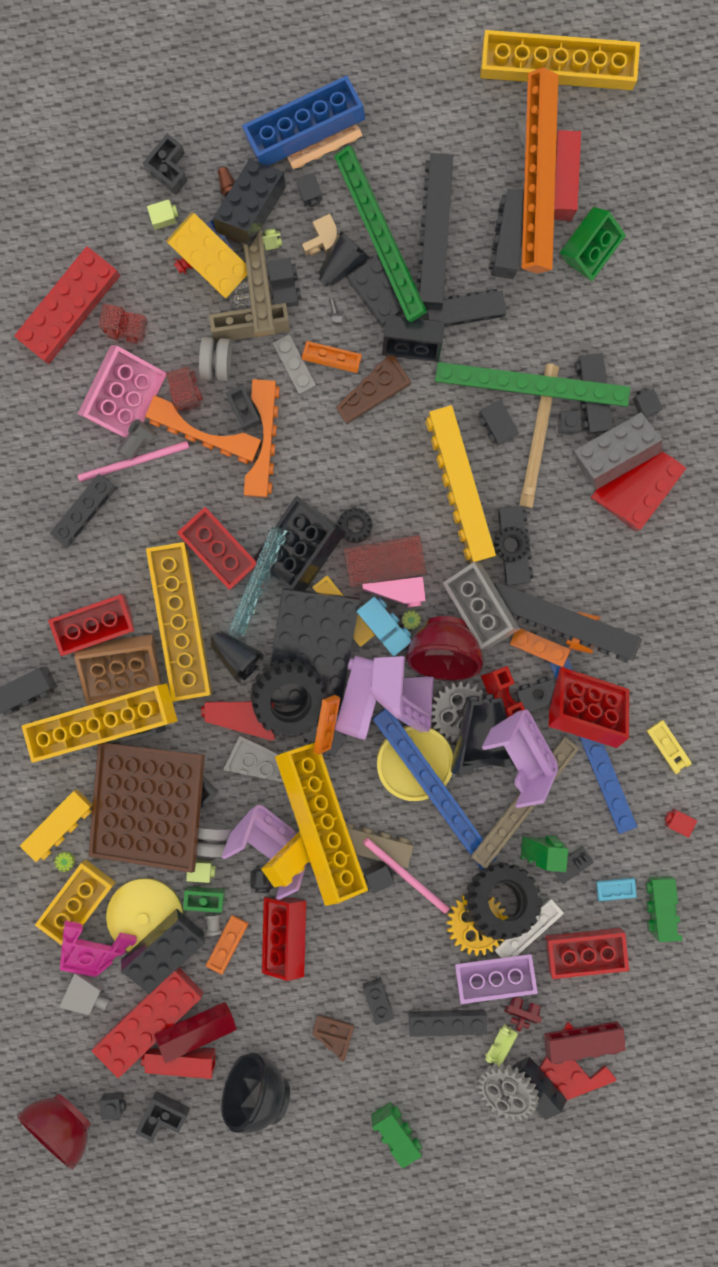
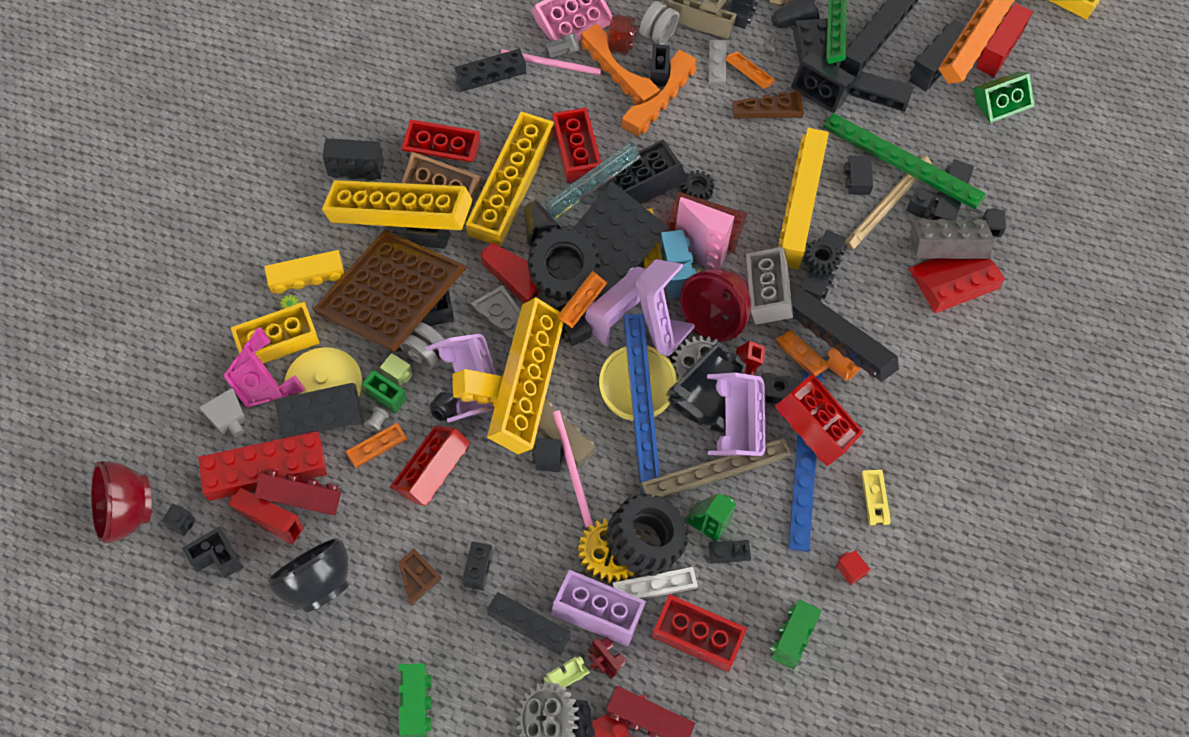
camera: 25 degrees right, 25 degrees down
(616, 889) = (759, 595): medium azure plate -> none

